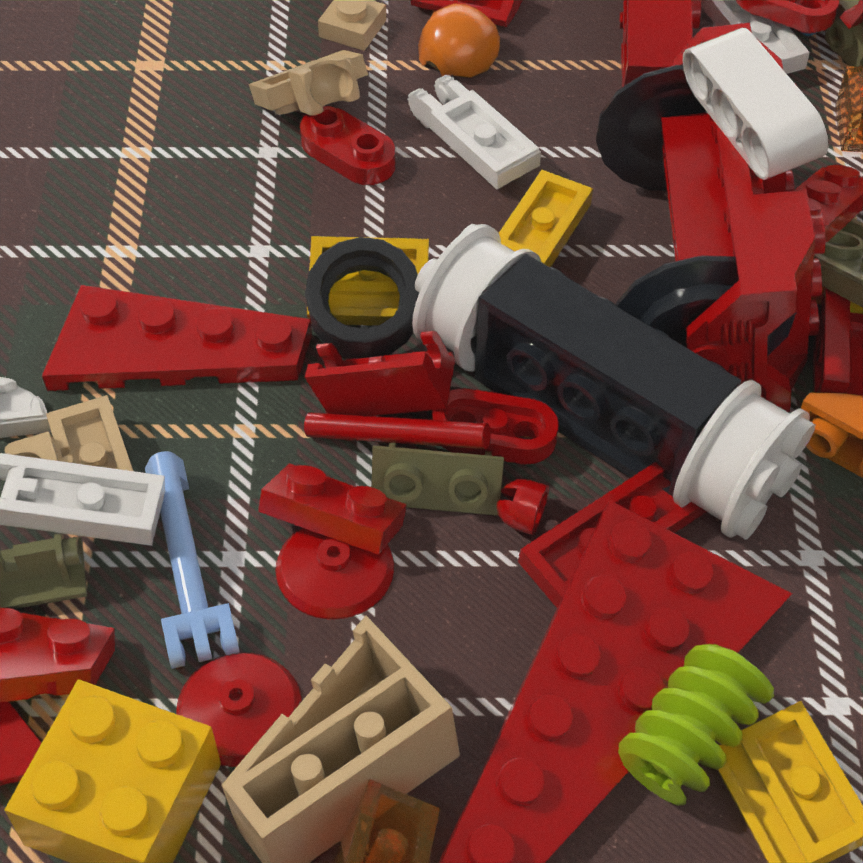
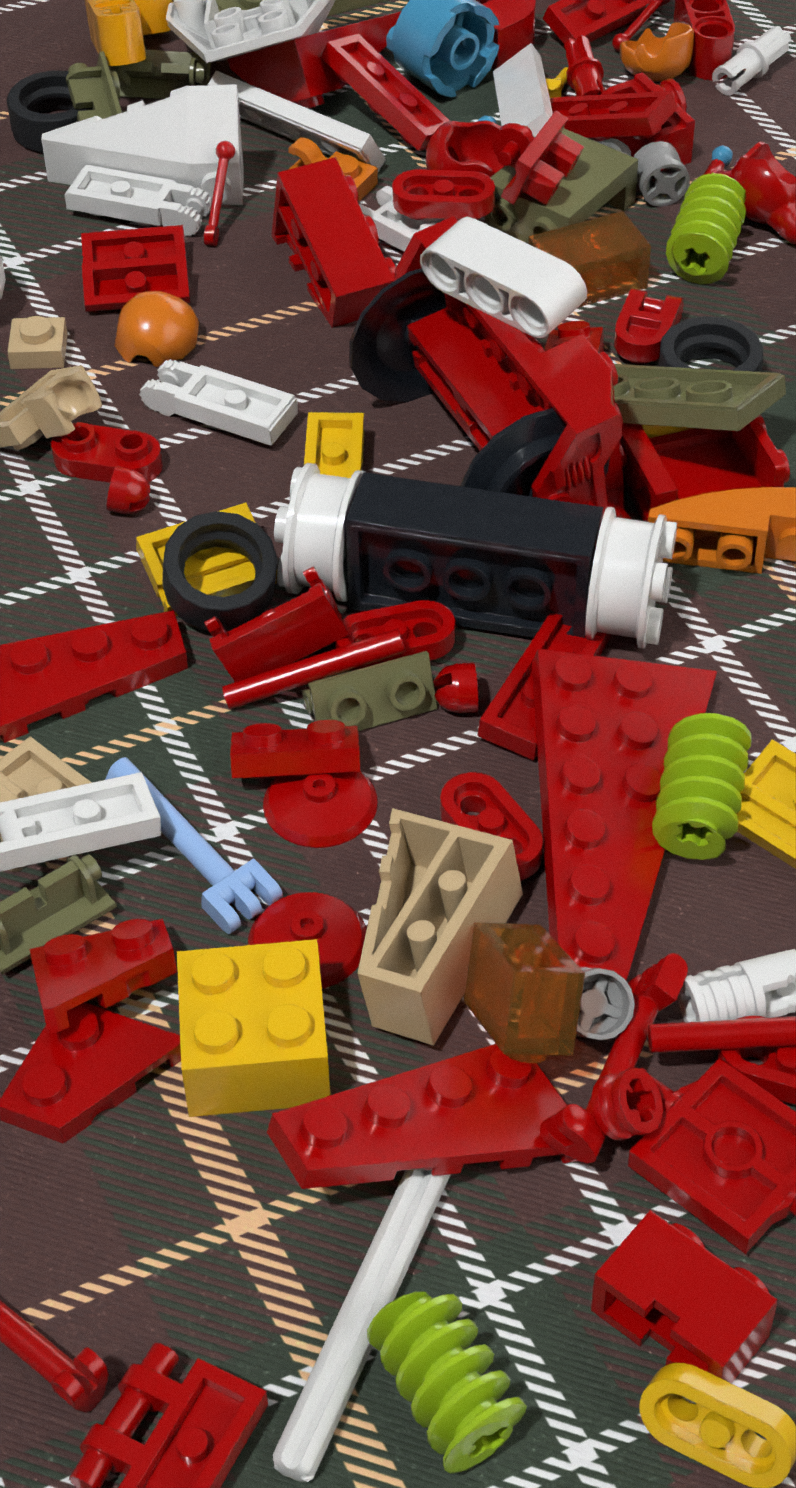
camera: 25 degrees left, 5 degrees down
(339, 187) = (127, 491): none -> red hinge
(472, 672) = (497, 816): none -> red plate

